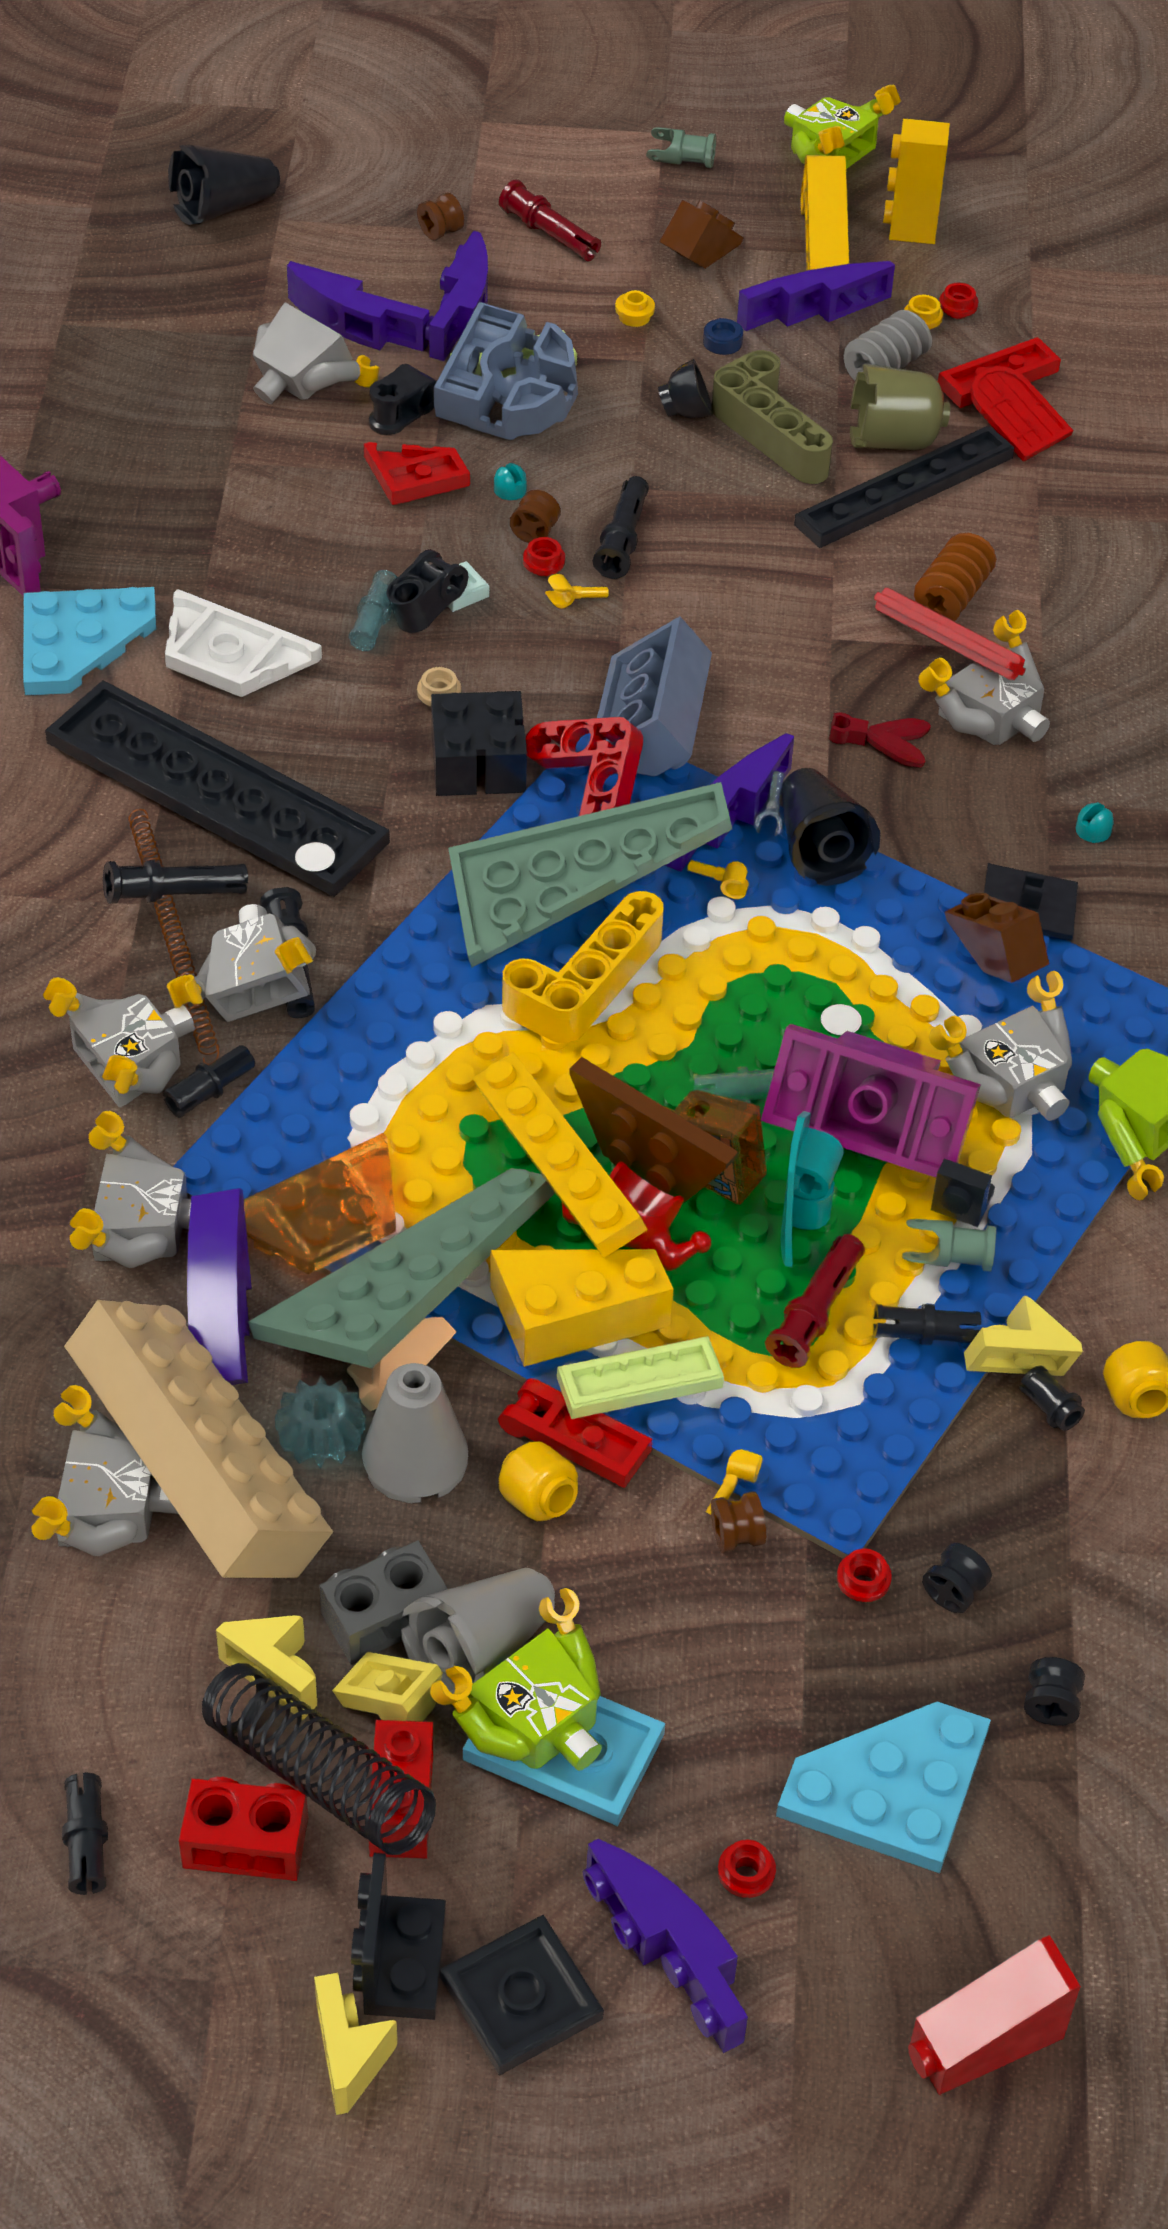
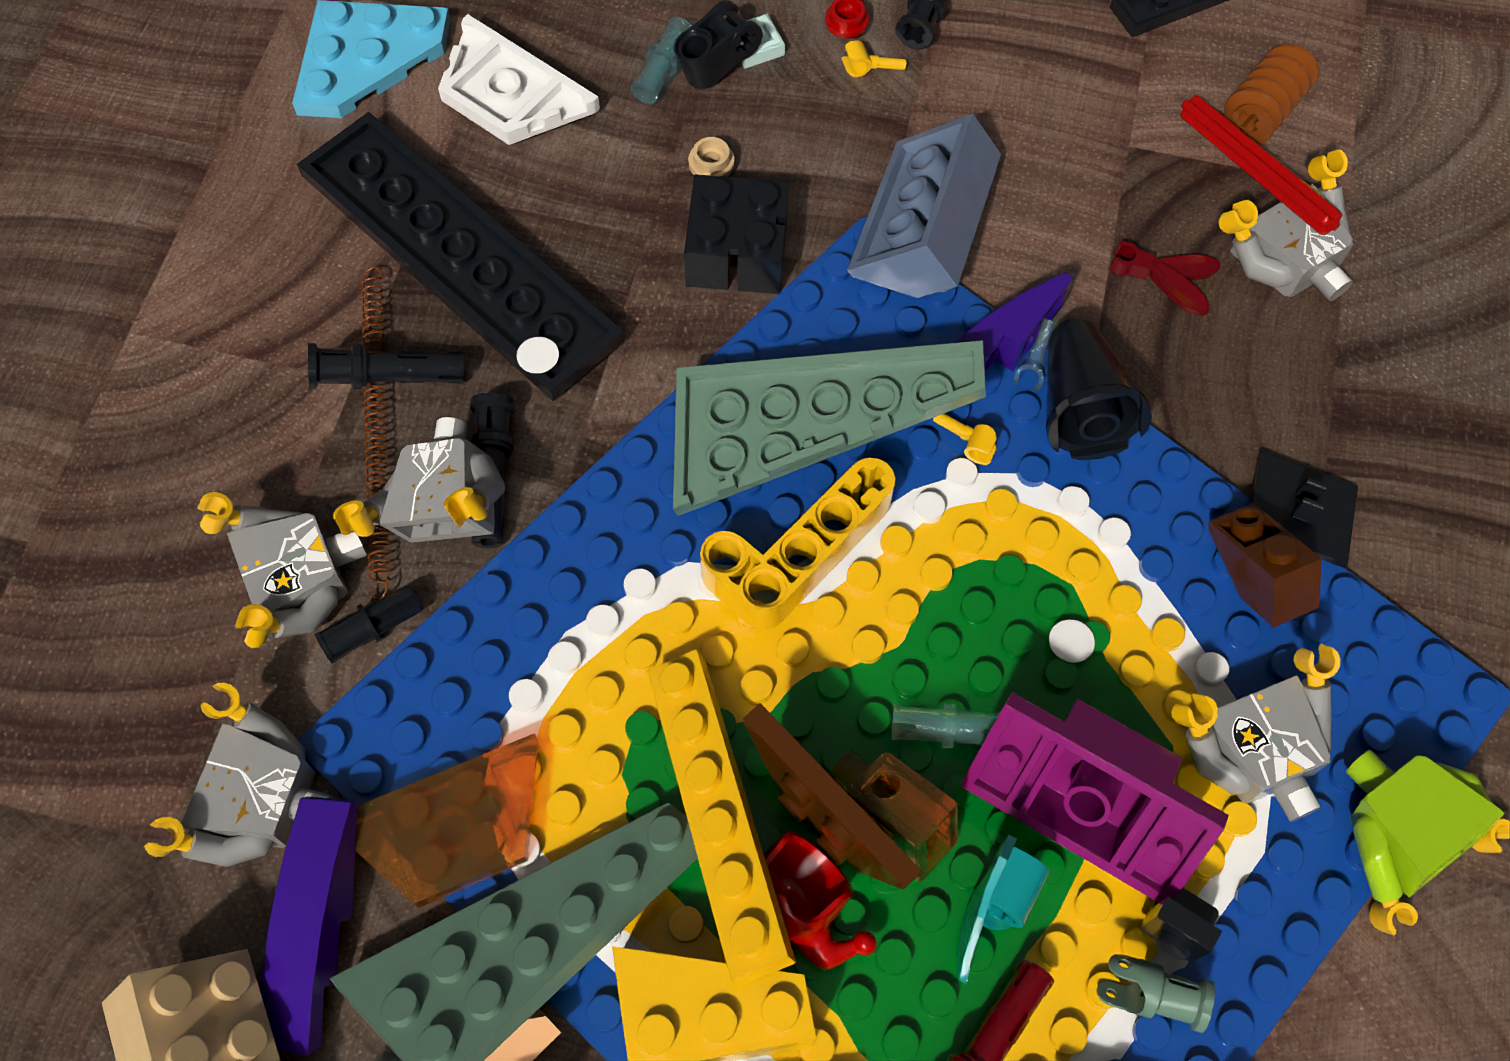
camera: 10 degrees right, 15 degrees up
(599, 755) = (863, 280): red beam -> none
(1100, 825) = (1390, 421): teal hinge -> none

